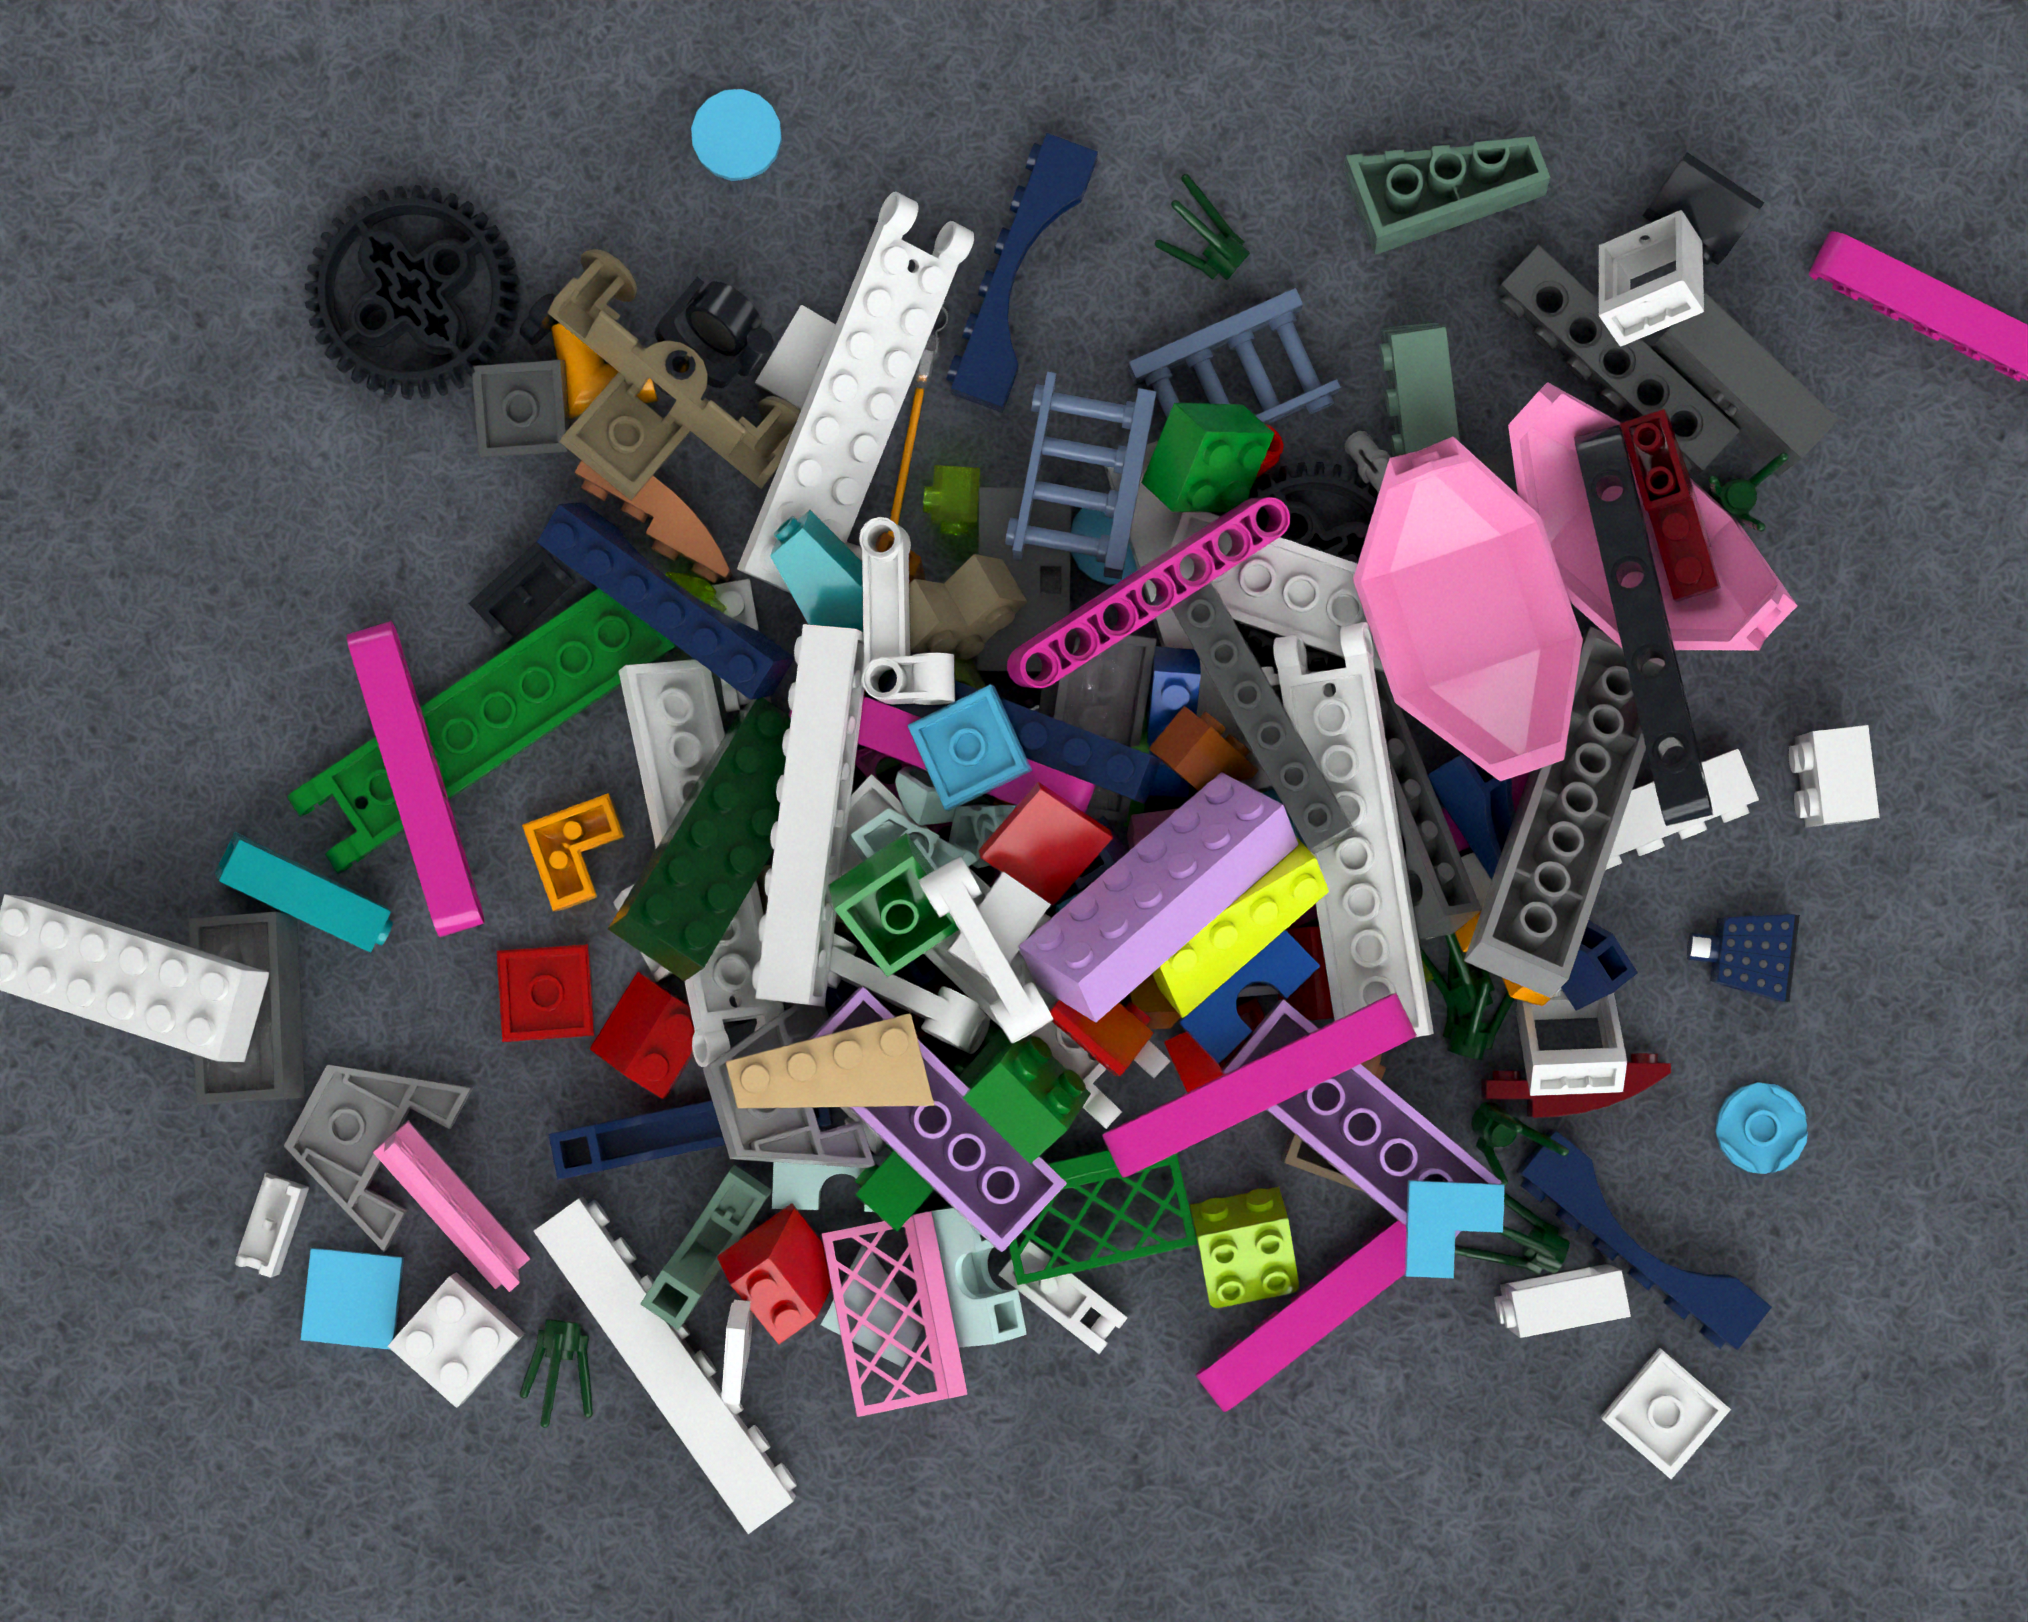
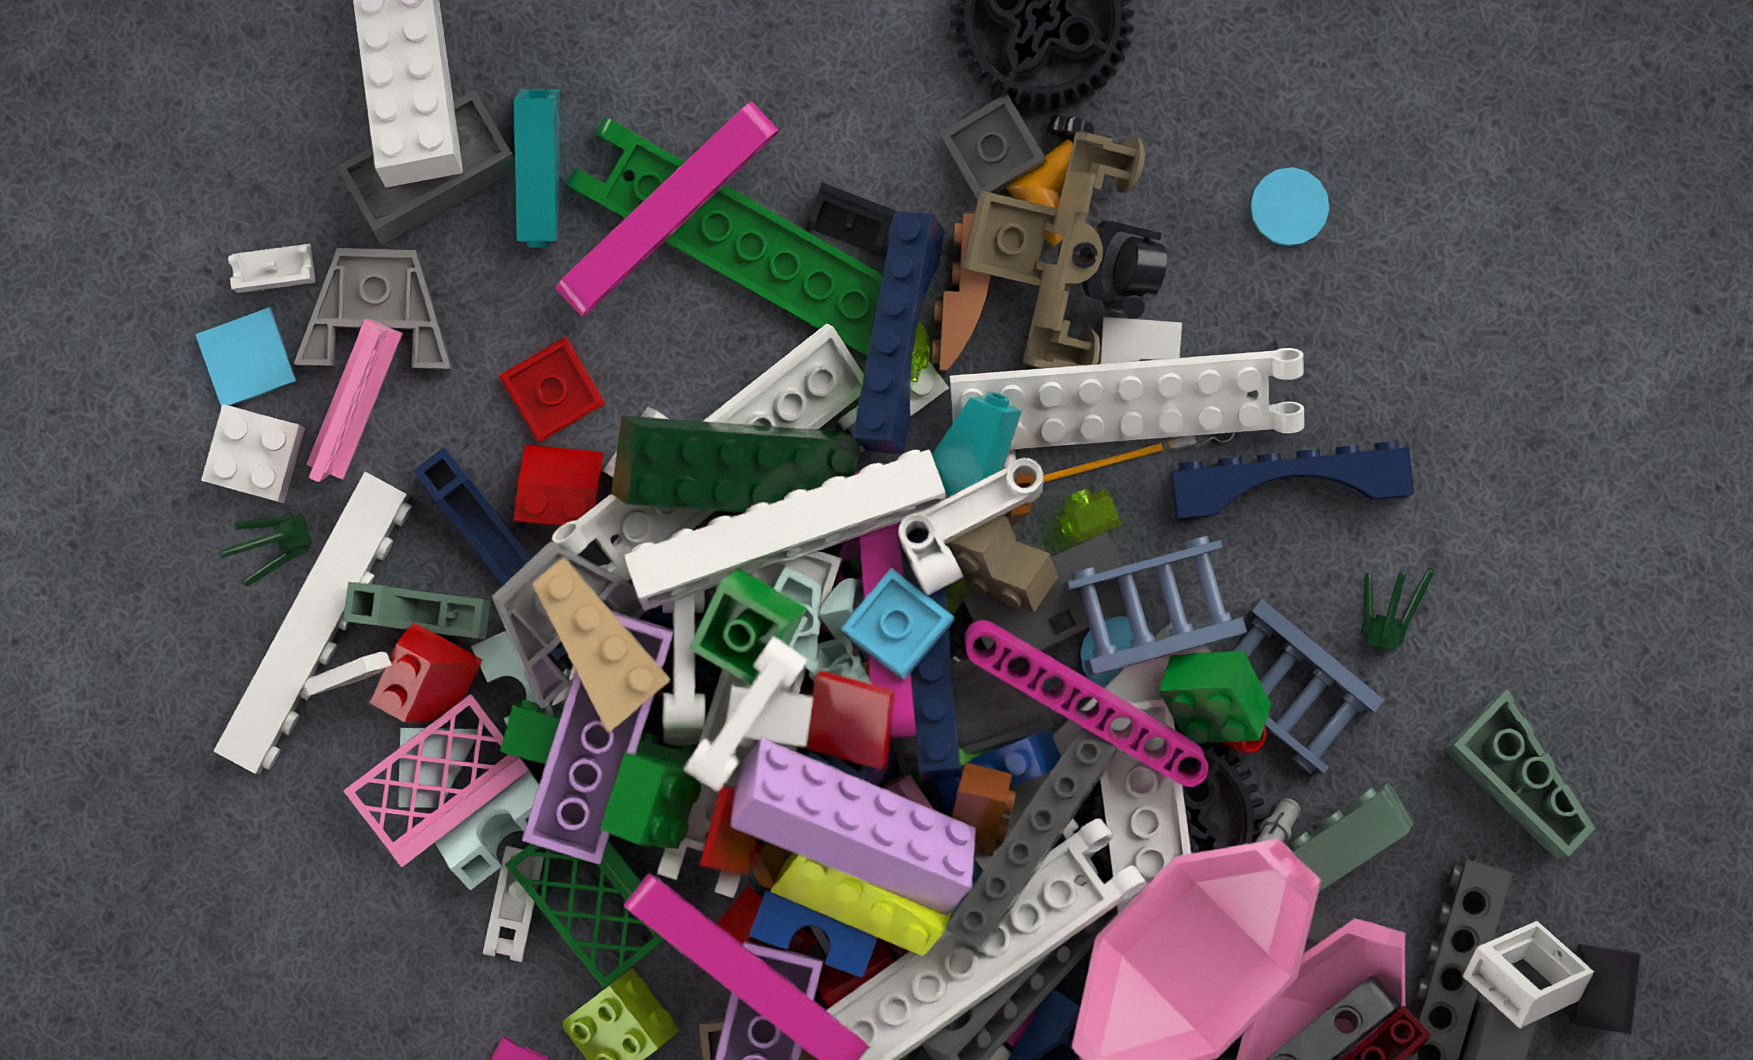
camera: 65 degrees right, 0 degrees up
(559, 844) = (673, 343): light orange brick -> none

